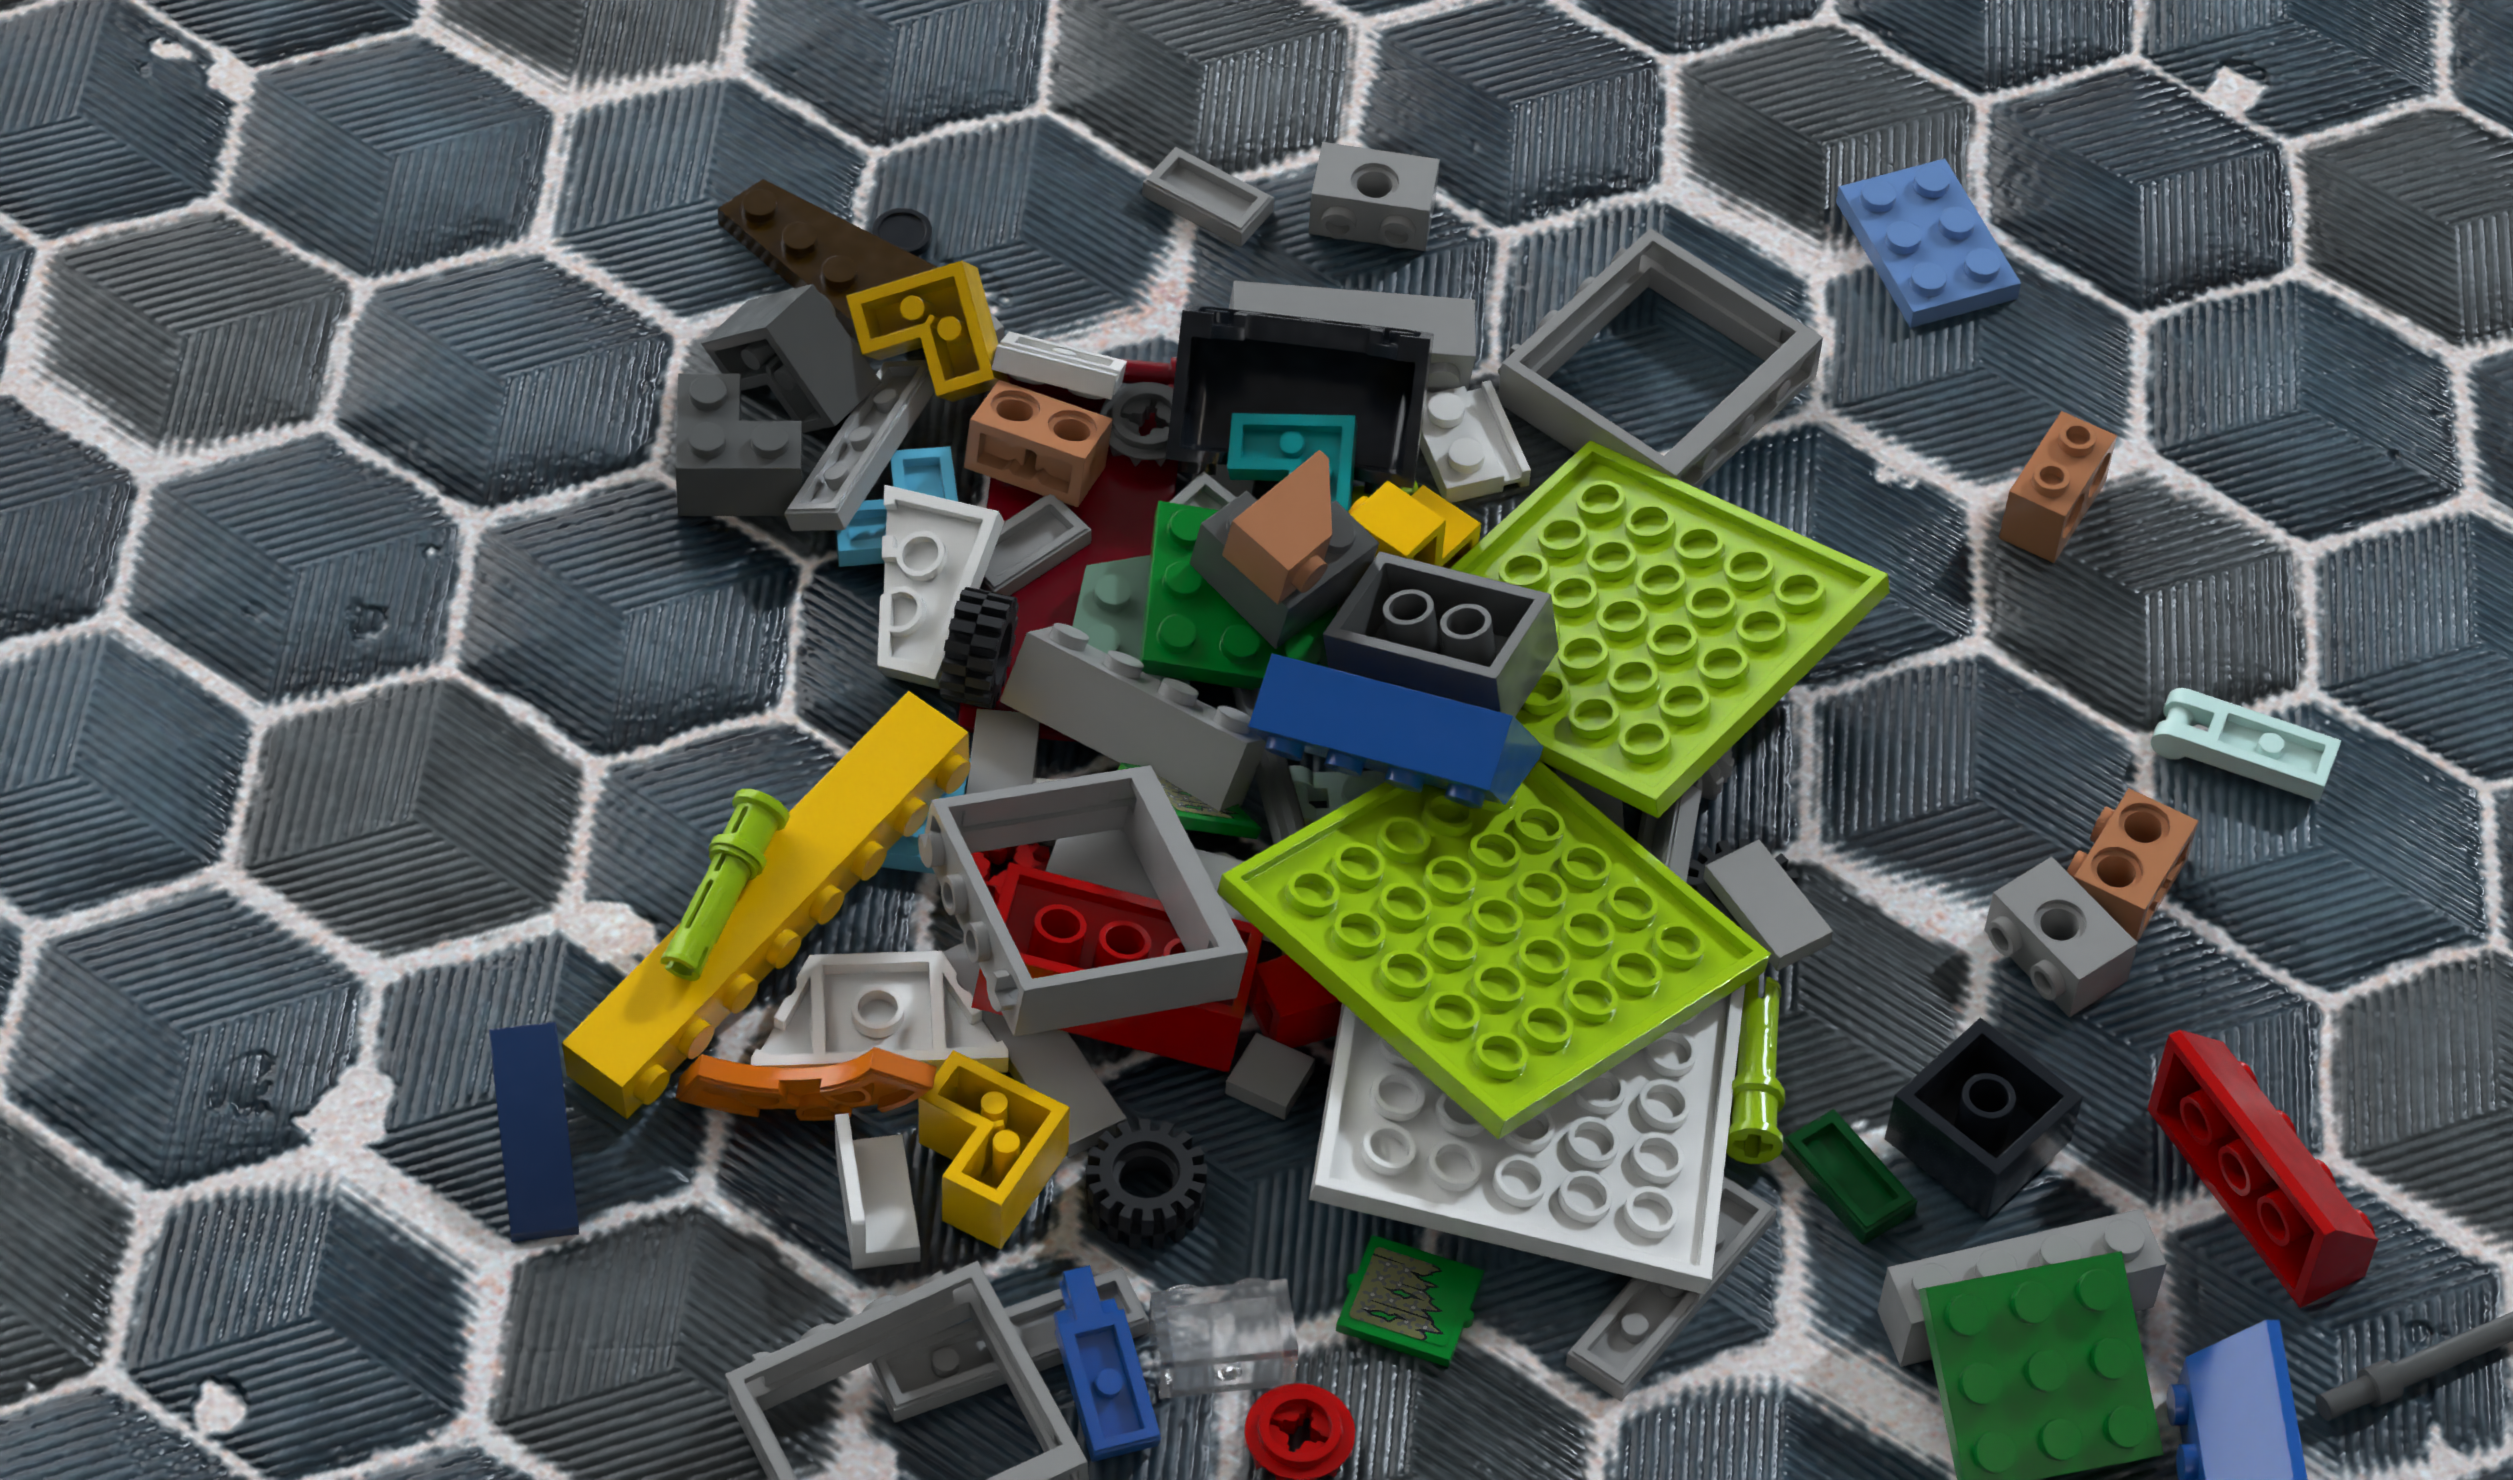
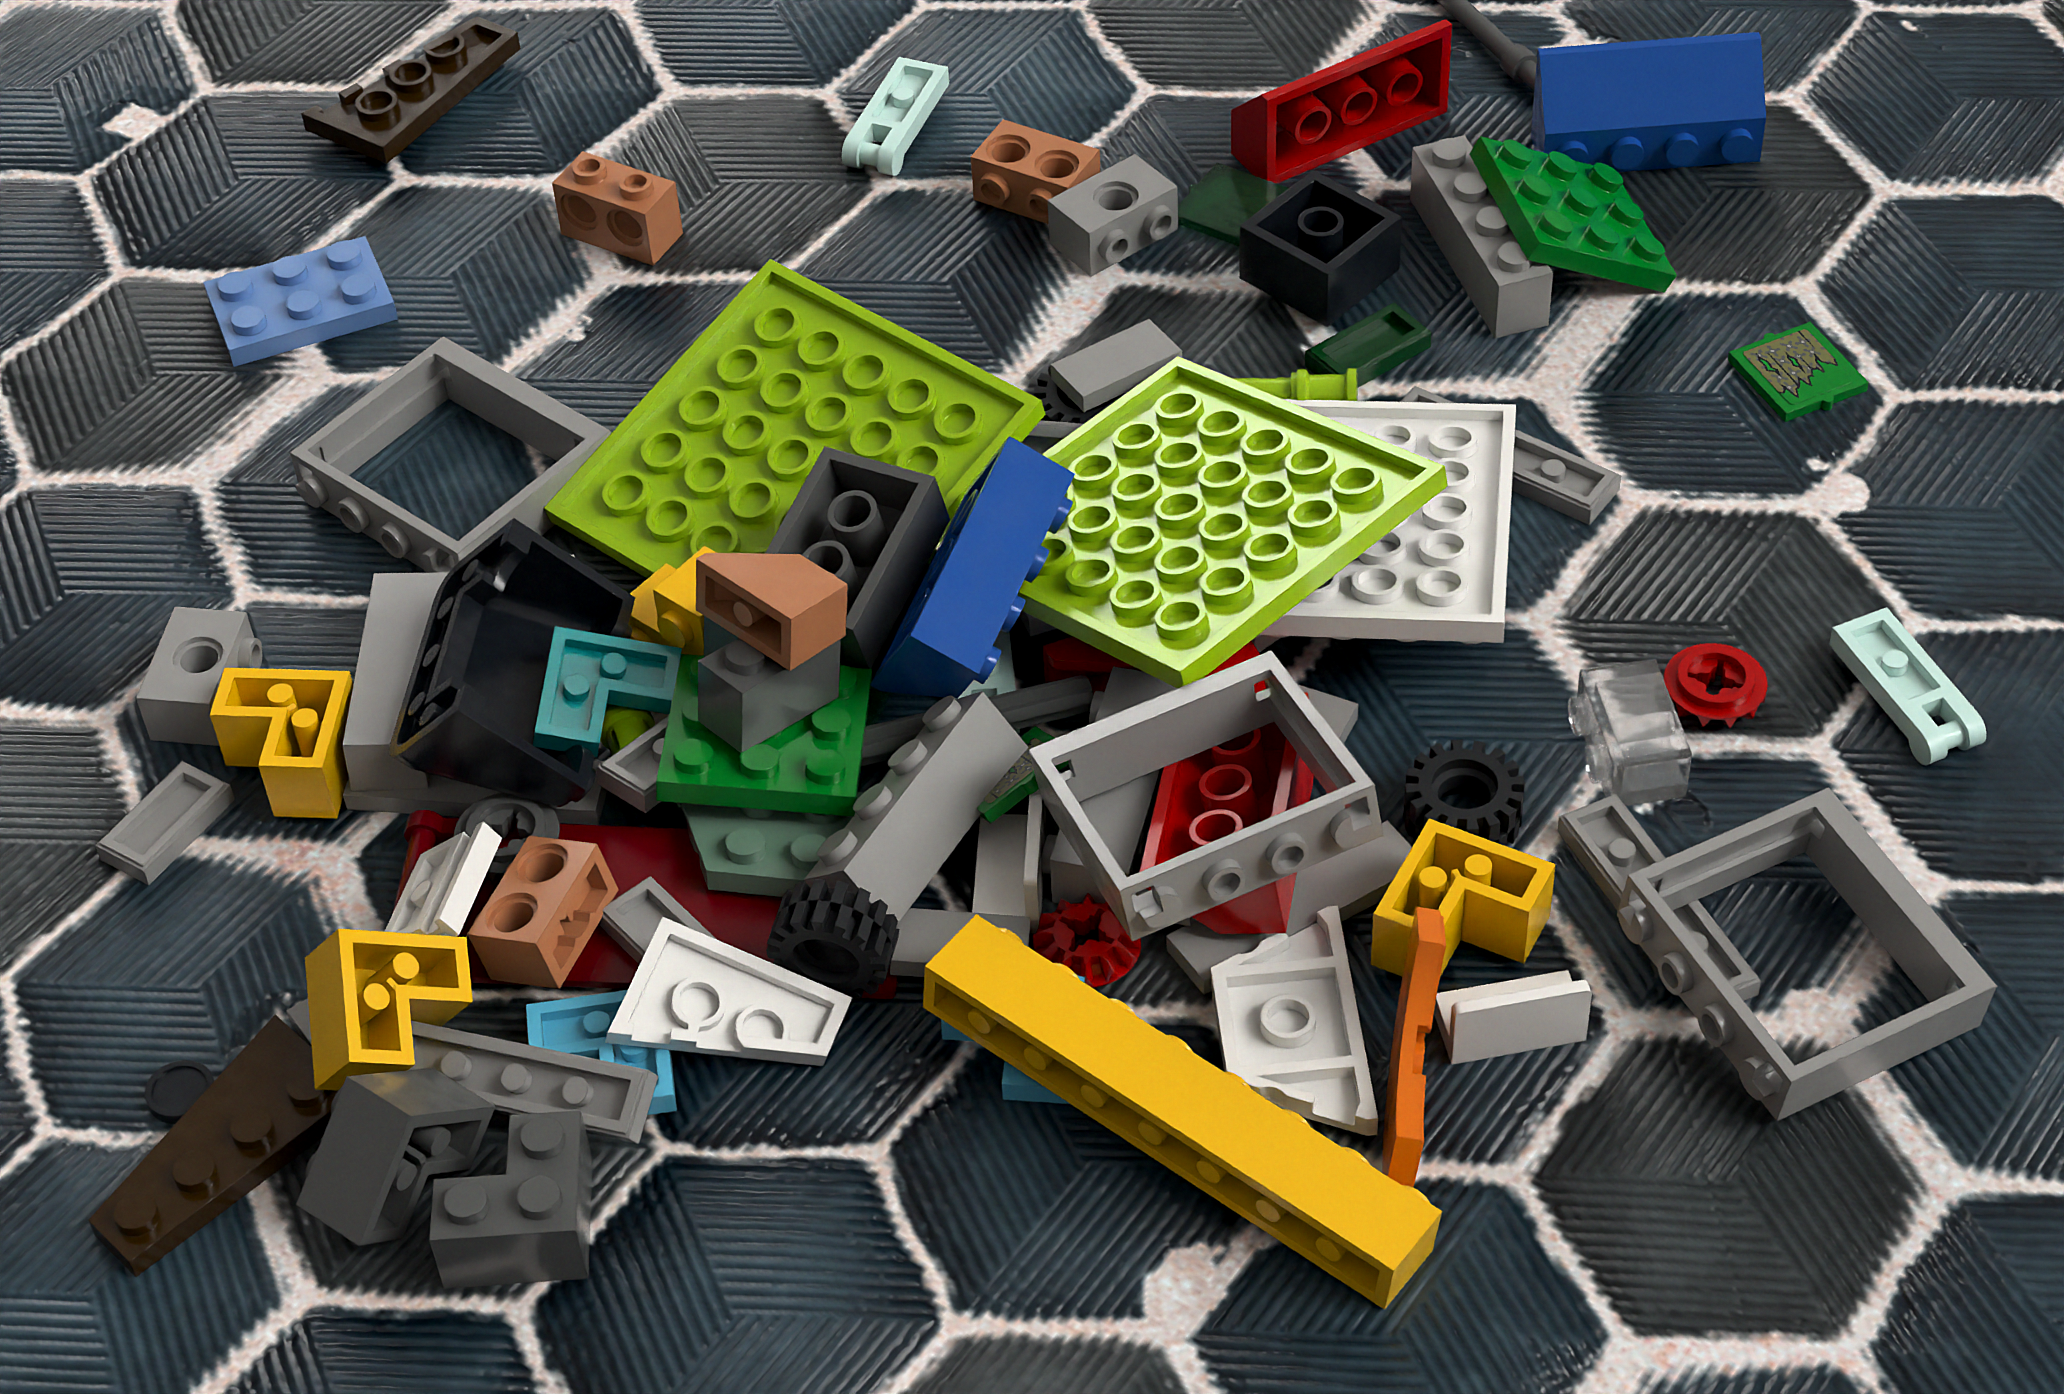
camera: 85 degrees left, 5 degrees down
(534, 1132) = (1484, 1311): dark blue slope -> none
(734, 860) = (1166, 1097): lime pin -> none
(1103, 1370) = (1681, 810): blue hinge -> none
(1288, 253) = (291, 730): none -> yellow brick
(1410, 1300) = (1549, 623): piece -> none
(2108, 1067) = (1225, 201): none -> clear green piece
(2259, 306) = (414, 91): none -> dark brown wing

